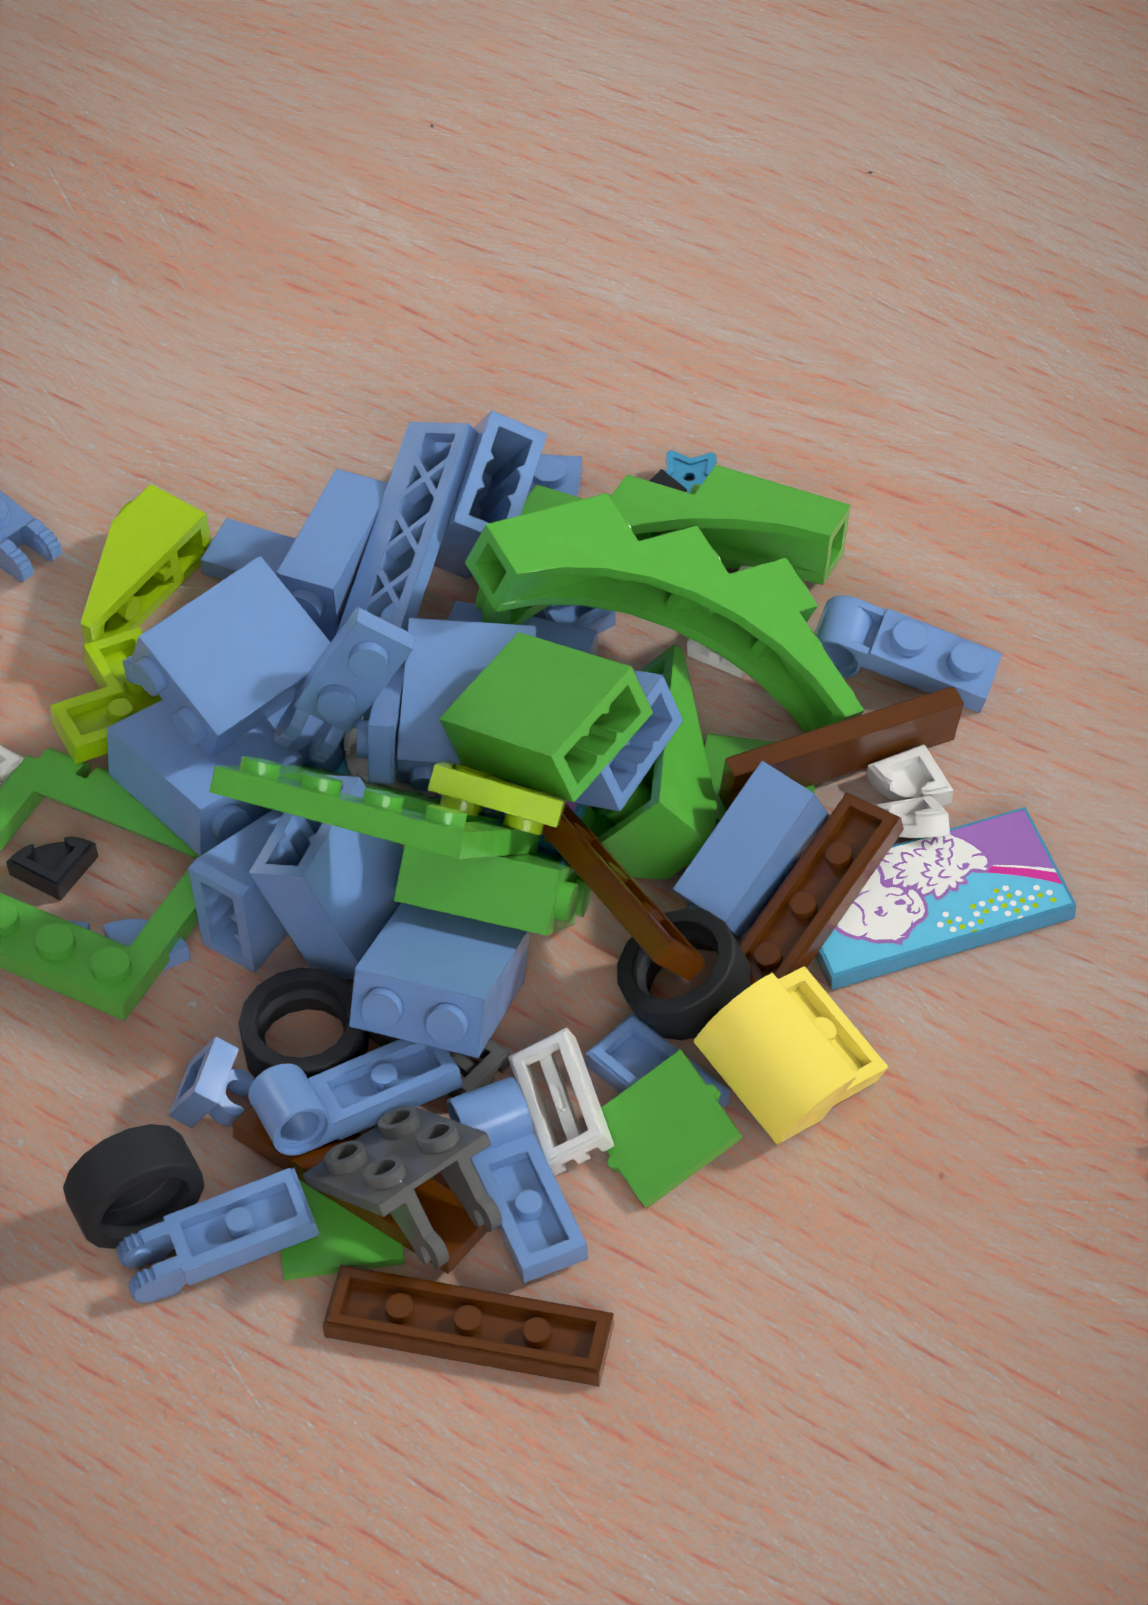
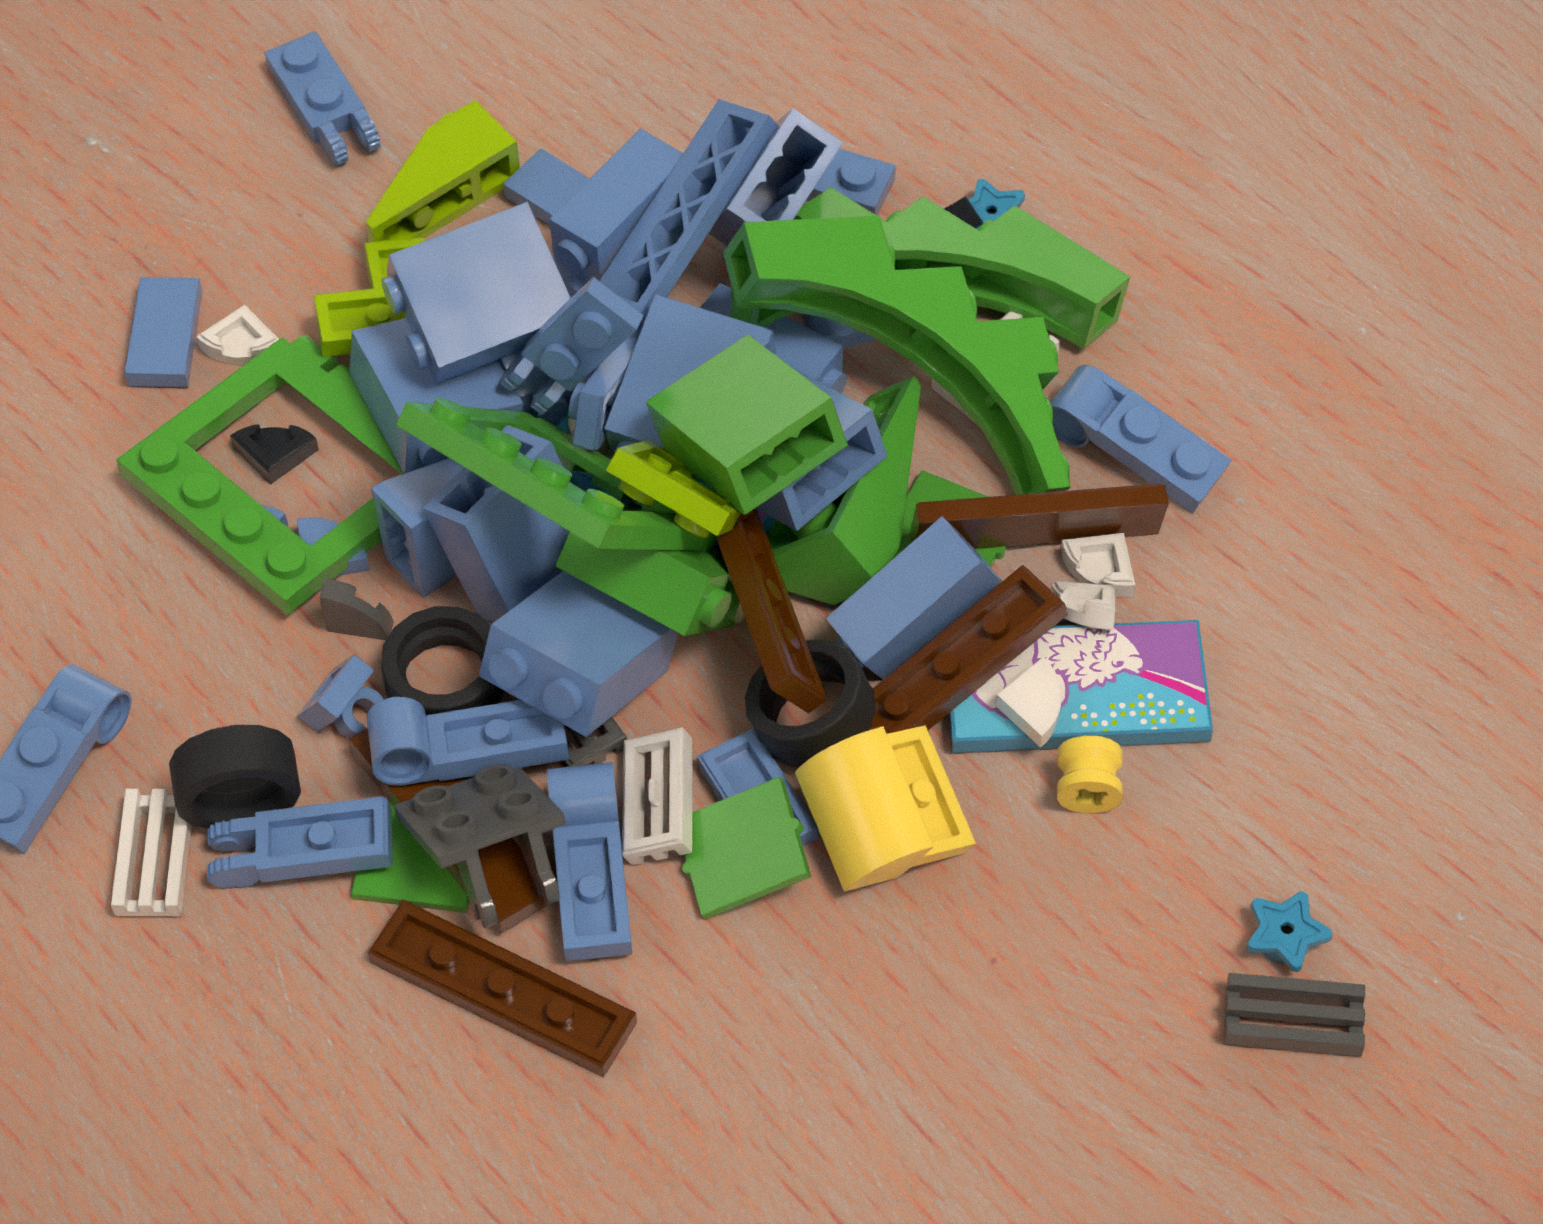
camera: 15 degrees right, 5 degrees up
(56, 1238) = (156, 805): none -> white tile
(193, 1003) = (352, 615): none -> dark grey tile
(899, 919) = (1033, 701): none -> white tile
(975, 974) = (1089, 774): none -> light yellow wheel

